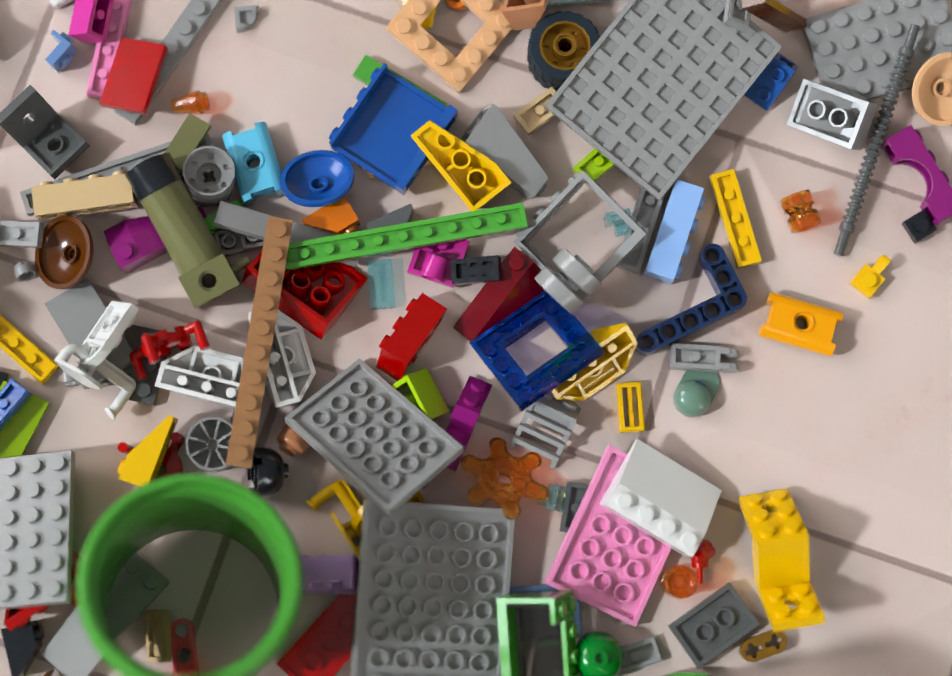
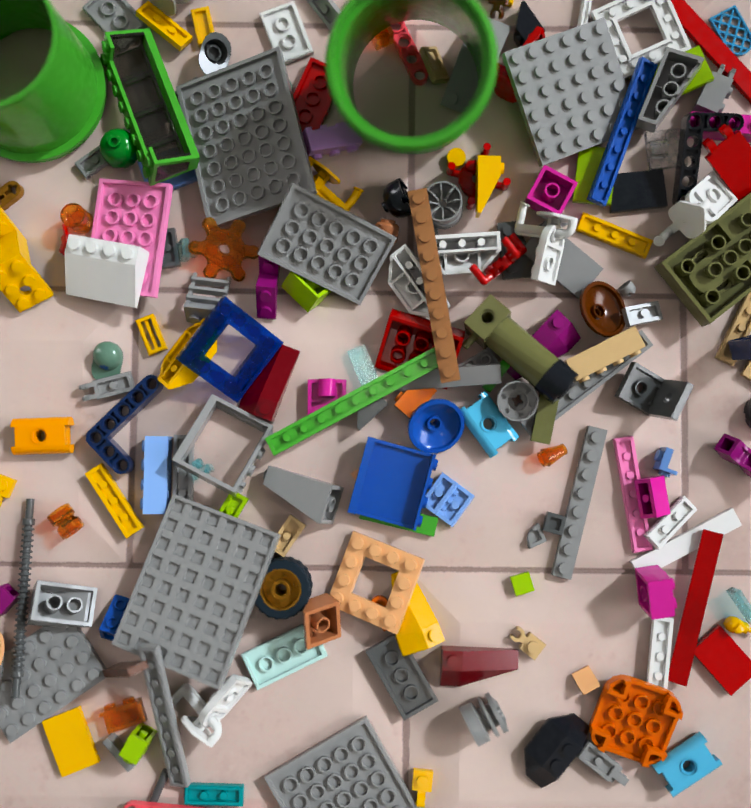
camera: 160 degrees right, 5 degrees up
(73, 417) = (550, 191): none -> dark pink brick
(133, 76) = (602, 460): red tile -> none
(218, 24) = (554, 523): none -> dark grey plate
(332, 91) = (448, 499): none -> light blue slope
(409, 336) = (327, 332): red wedge -> none
(464, 168) = (325, 466): yellow wedge -> none
(476, 270) = (293, 394): black tile -> none
(574, 274) = (222, 399): light grey wheel -> none
(713, 625) = (45, 198): dark grey plate -> none

